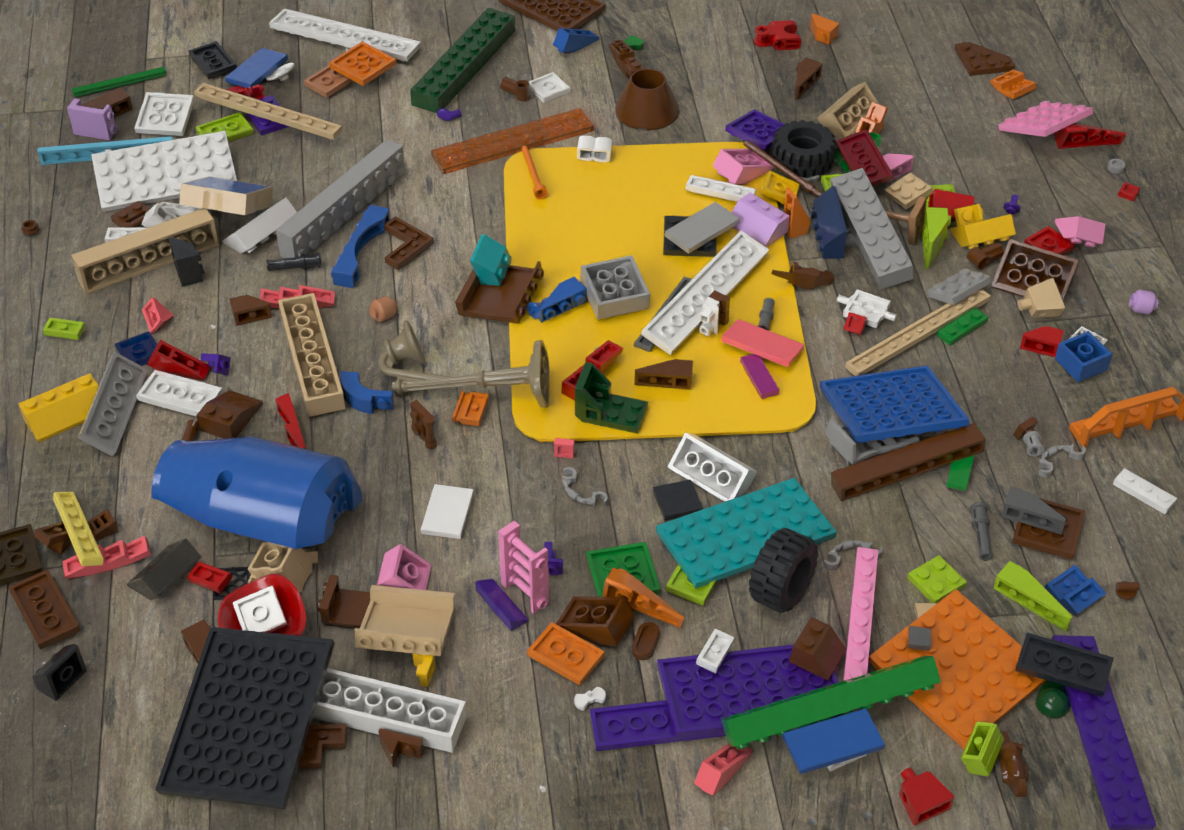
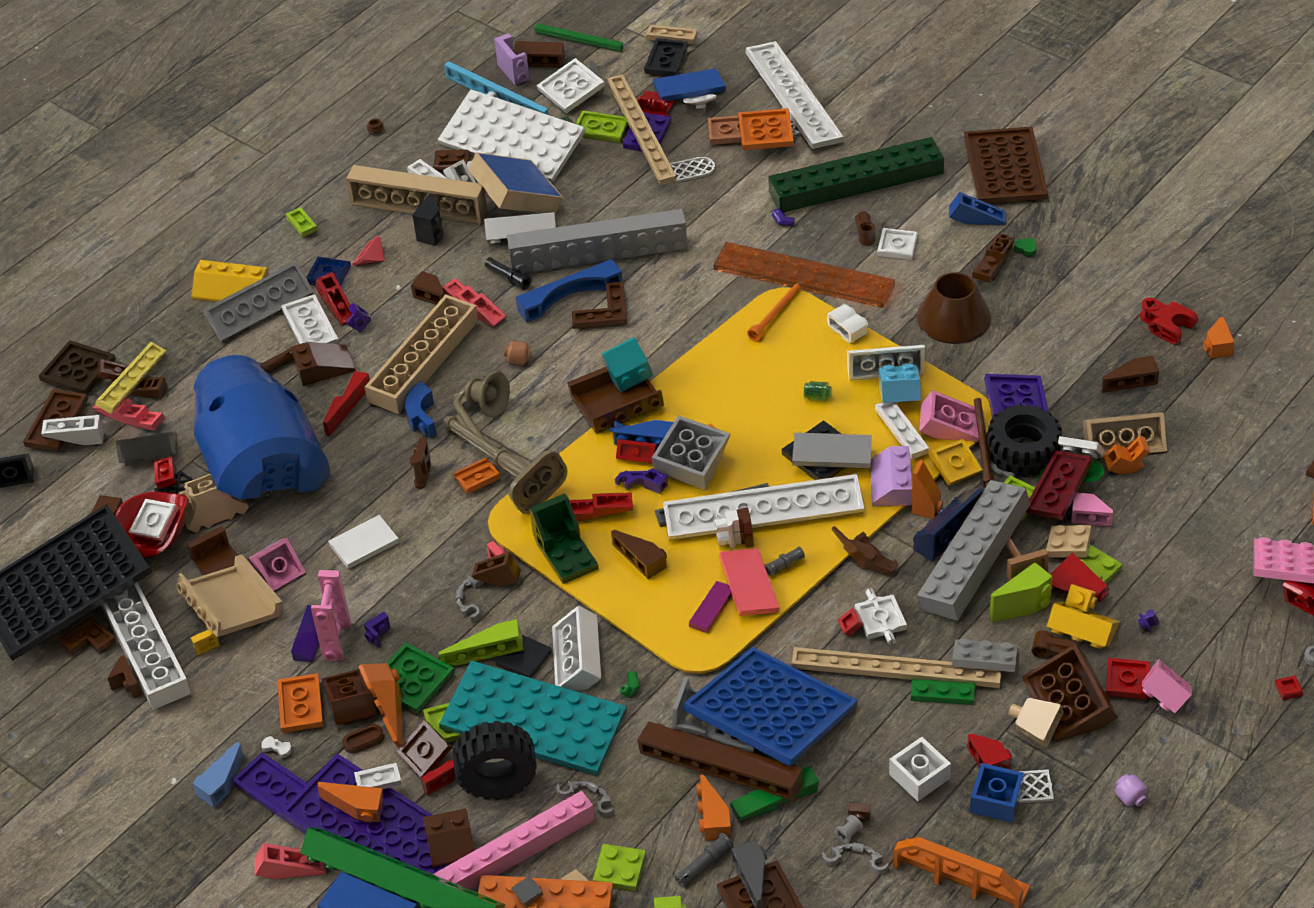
camera: 50 degrees right, 0 degrees up
(82, 600) = (77, 430): none -> white slope
(181, 47) = (671, 33): none -> tan plate
(344, 110) = (699, 160): none -> white window
(569, 313) = (635, 450): none -> red plate
(583, 456) = (498, 570): none -> reddish brown slope
(585, 754) = (217, 779): none -> medium blue slope
(604, 325) = (652, 479): none -> dark purple piece
(634, 200) = (817, 390): none -> clear green brick
(654, 498) = (489, 643): none -> lime slope
(655, 155) = (866, 362): none -> white slope
(686, 161) = (899, 383): none -> medium azure brick
(707, 609) = (424, 749): none -> plate
(722, 678) = (357, 801): none -> orange slope
(741, 623) = (438, 778): none -> red plate
(778, 463) = (633, 685): none -> green arm
(848, 128) = (1079, 446): none -> white plate
(944, 496) = (714, 810): none -> orange slope
(1024, 376) = (919, 768): none -> white brick

